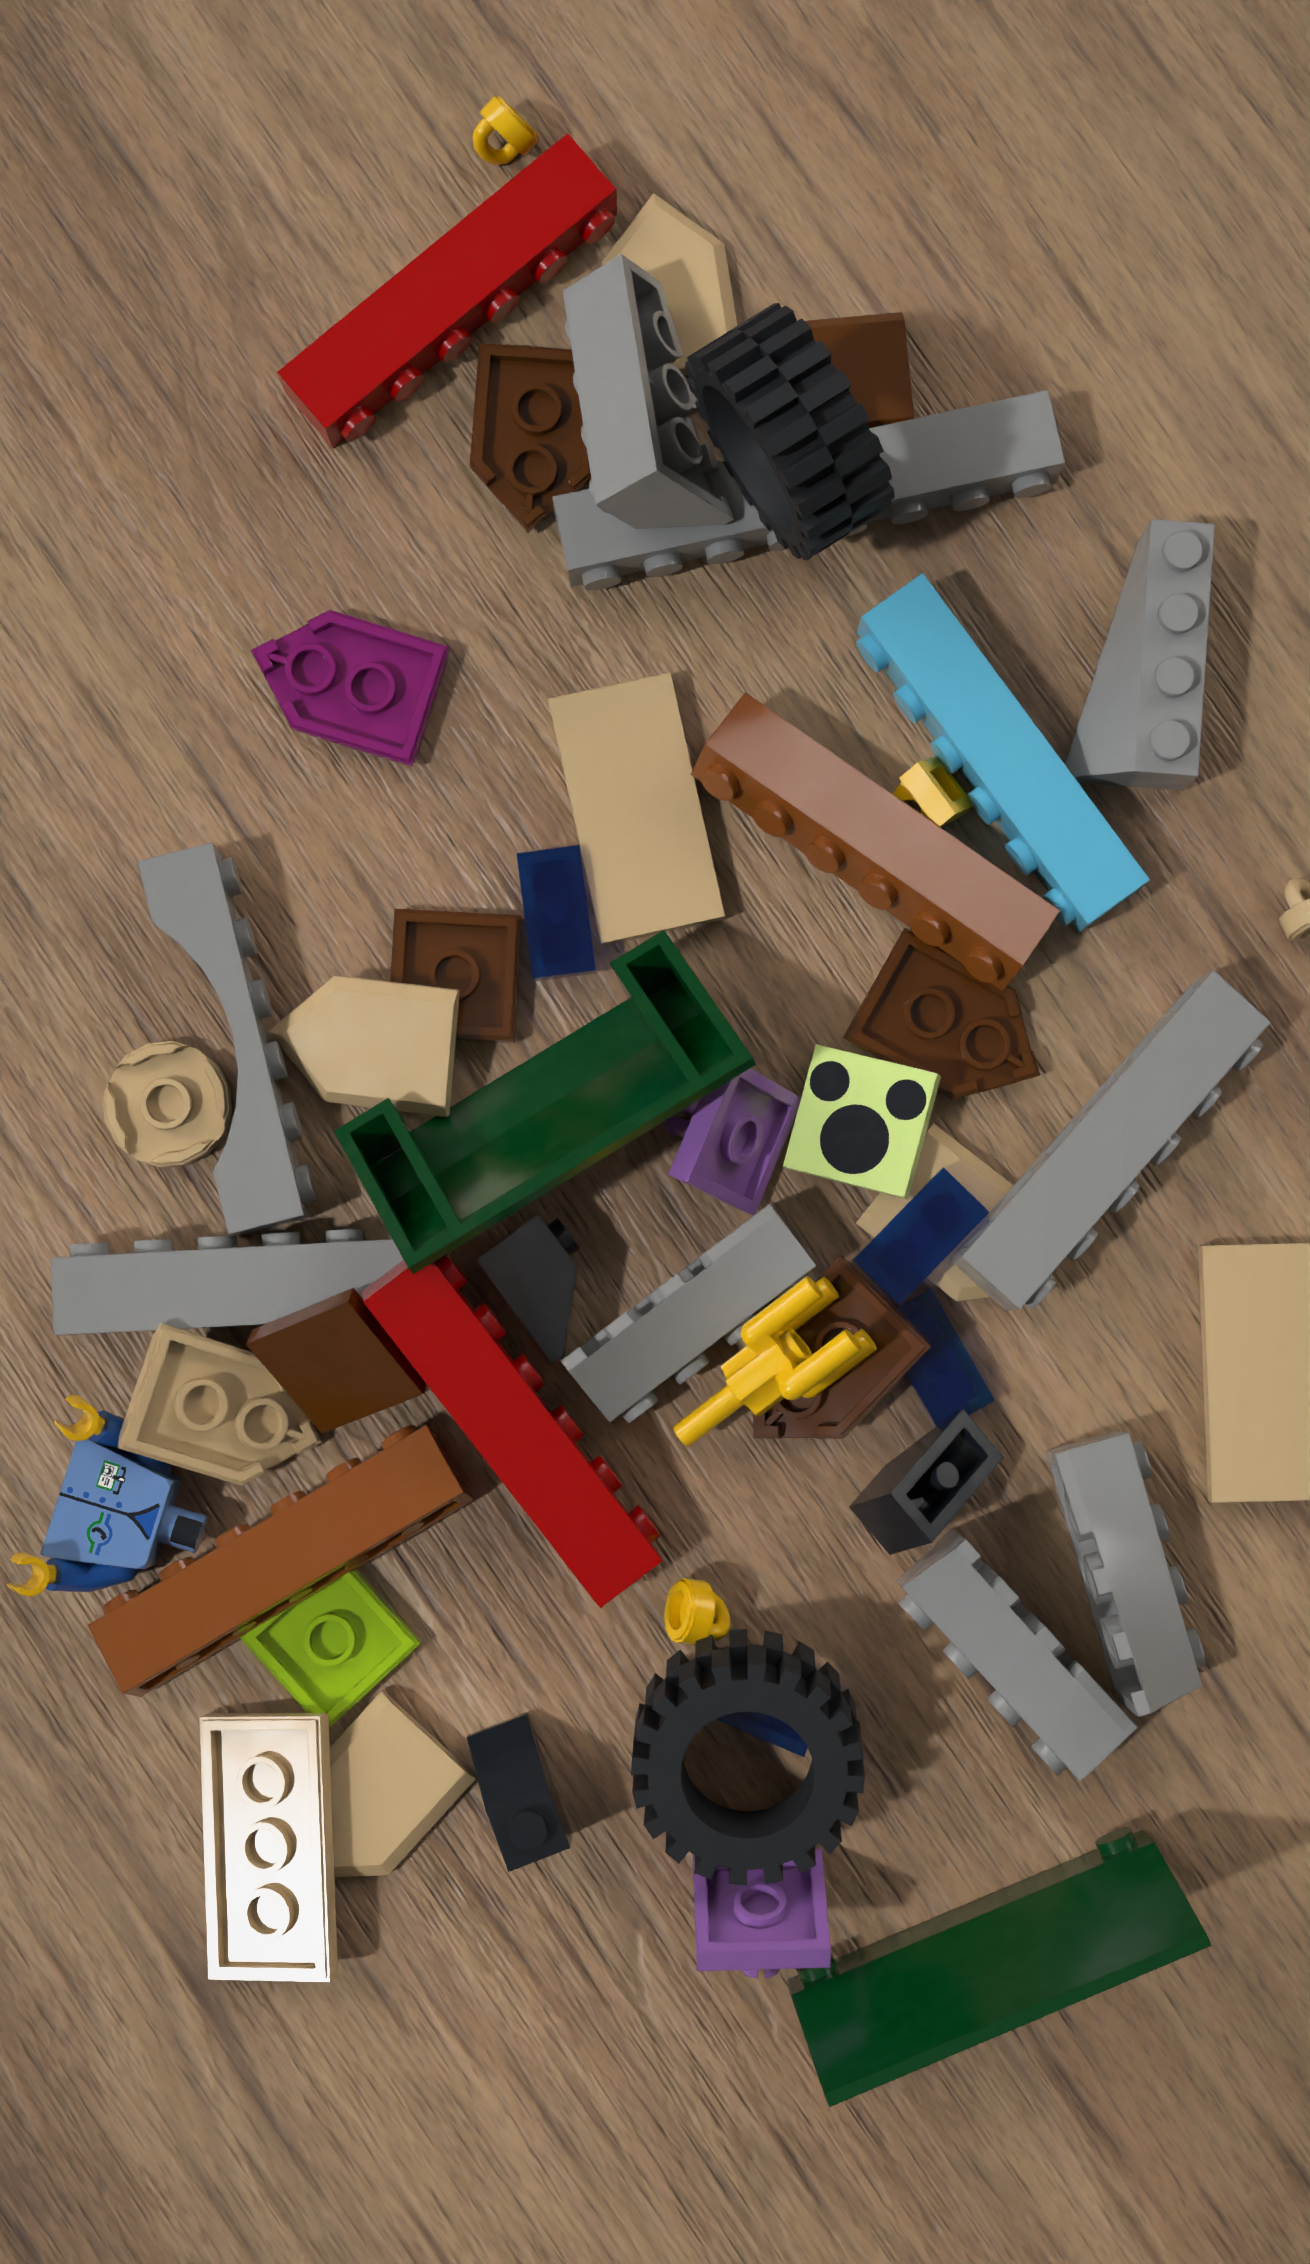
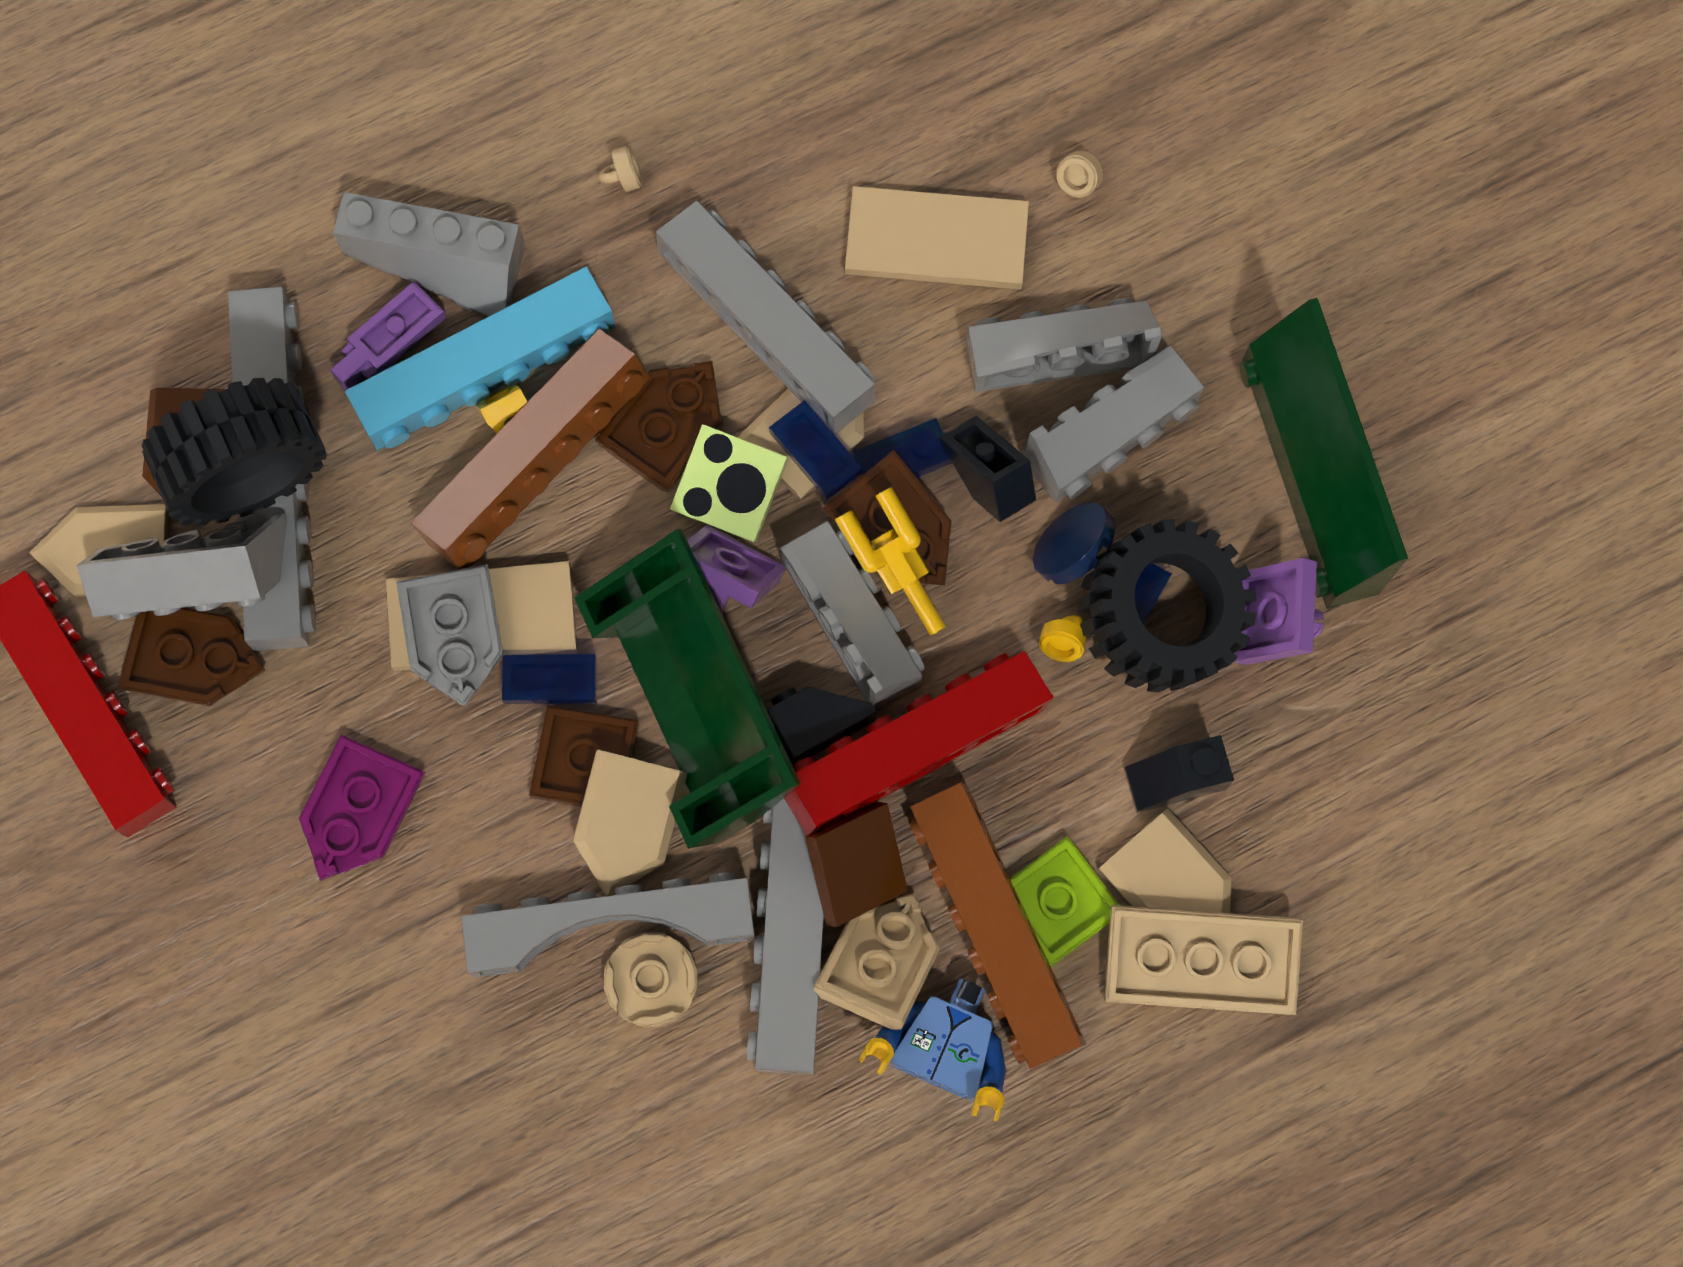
camera: 85 degrees left, 10 degrees down
(605, 771) = (451, 629): none -> light grey tile
(828, 1614) = (1072, 542): none -> dark blue tile
(1019, 620) = (387, 336): none -> medium lavender hinge

